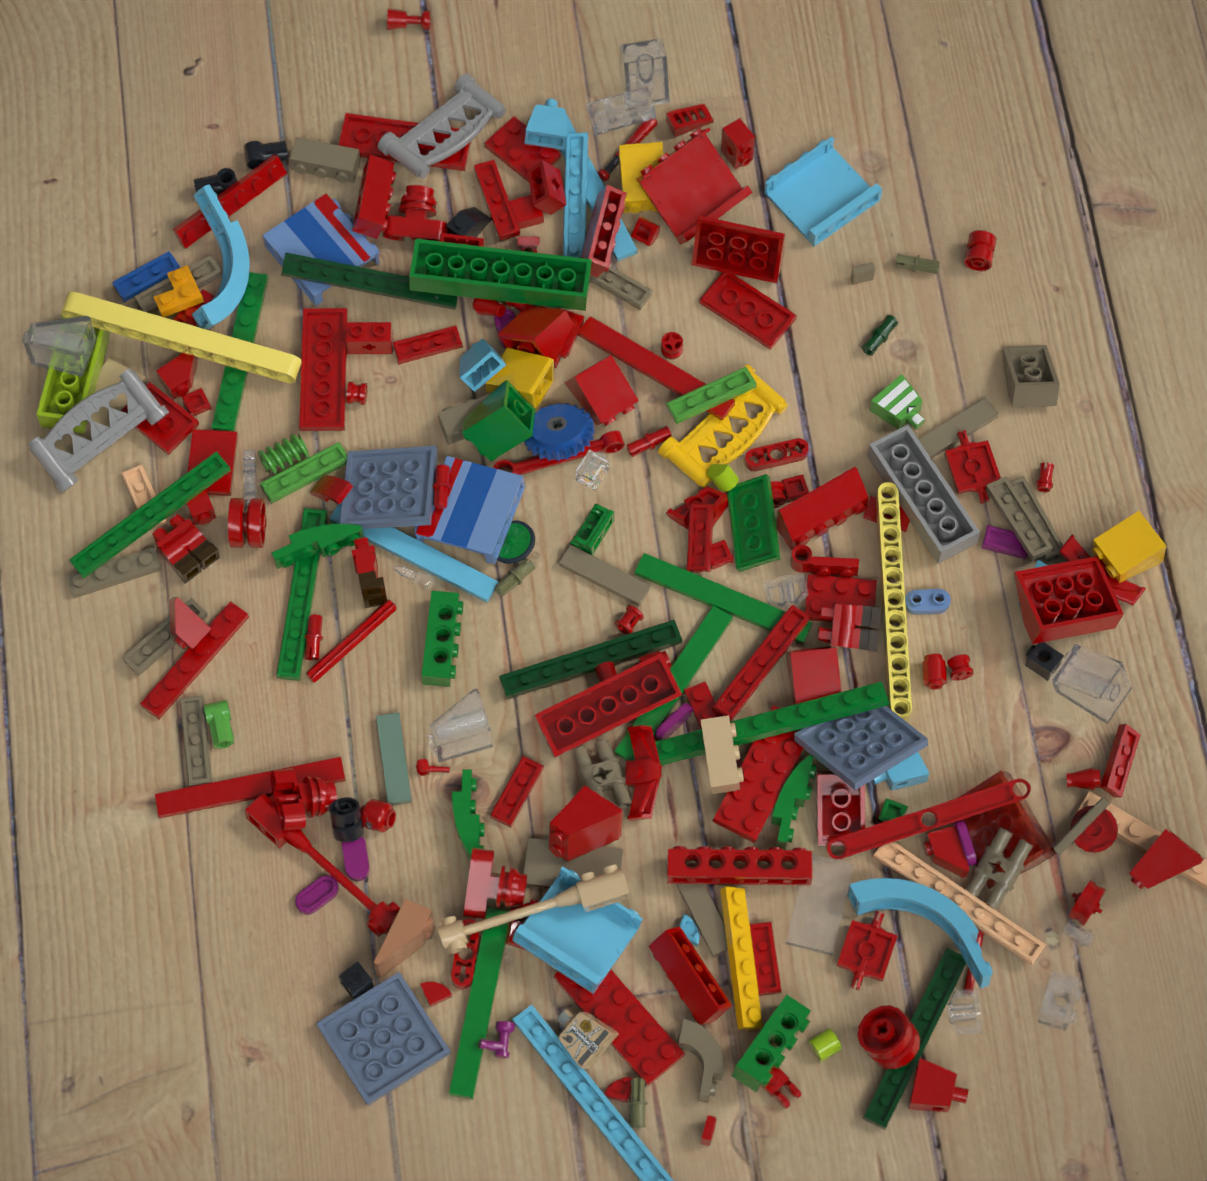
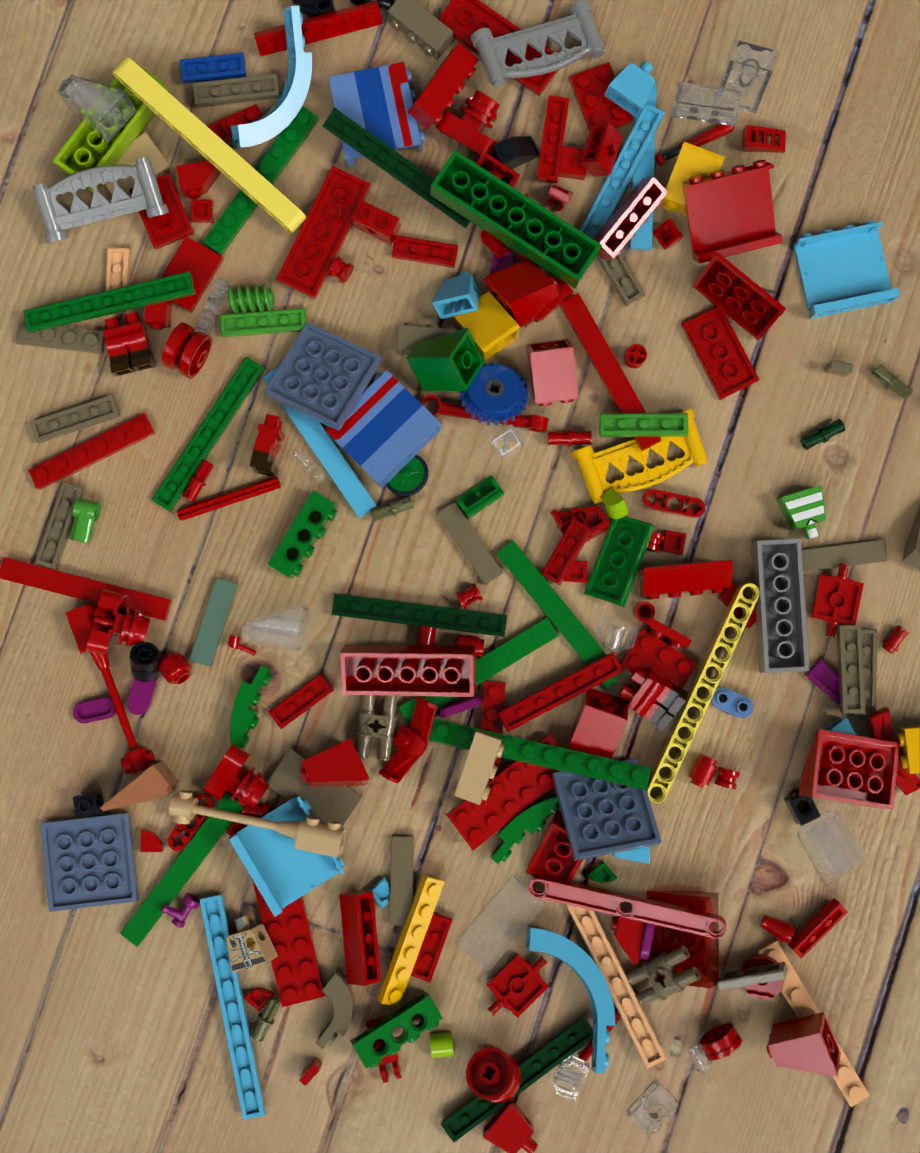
camera: 30 degrees right, 20 degrees up
(182, 296) = (234, 103): light orange plate -> none
(185, 624) = (92, 421): slope -> none
(325, 538) = (246, 398): green slope -> none
(331, 489) = (274, 352): red slope -> none
(441, 486) = (366, 399): red axle -> none
(737, 143) = (793, 188): red brick -> none
(749, 875) = (495, 896): red brick -> none

